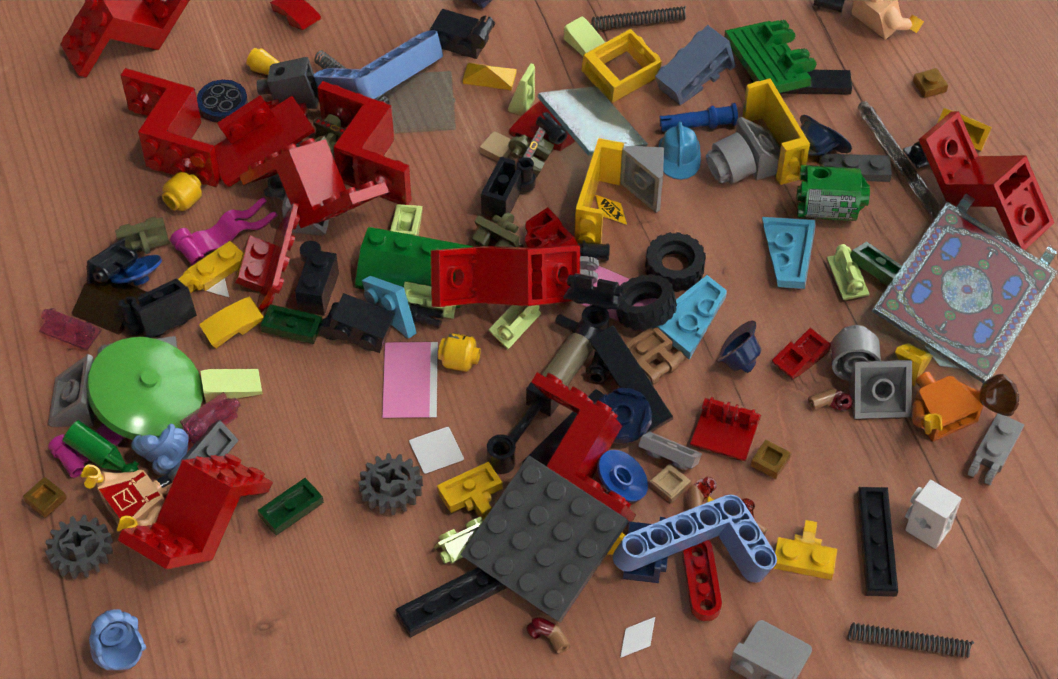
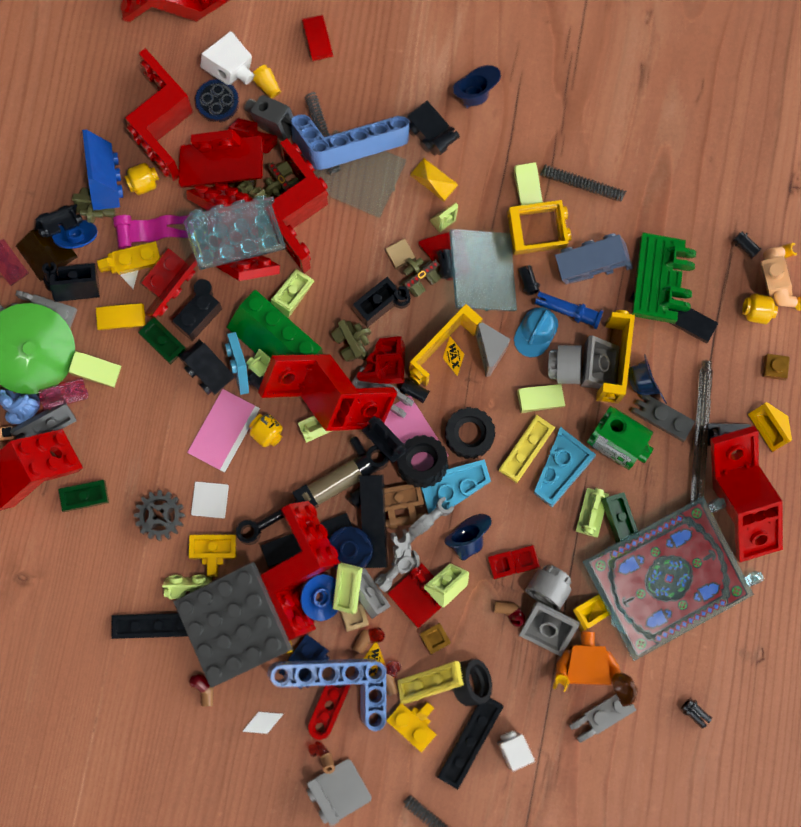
camera: 25 degrees right, 25 degrees up
(135, 197) = (102, 172): none -> blue slope
(215, 59) = (228, 60): none -> white torso
(319, 165) = (234, 232): none -> clear light blue bracket
(646, 115) = (529, 281): none -> black pin
(646, 449) = (347, 588): none -> yellowish green tile
(685, 355) = (427, 520): none -> light grey piece
(687, 400) = (402, 561): none -> light grey piece
(721, 628) = (325, 756): none -> arm
(723, 204) = (540, 398): none -> yellowish green slope
(742, 253) = (526, 449): none -> light yellow tile
(749, 398) = (447, 584): none -> yellowish green slope
(796, 493) = (430, 682): none -> light yellow tile
(840, 473) = (482, 683): none -> black tyre
(880, 41) = (759, 308): none -> yellow head

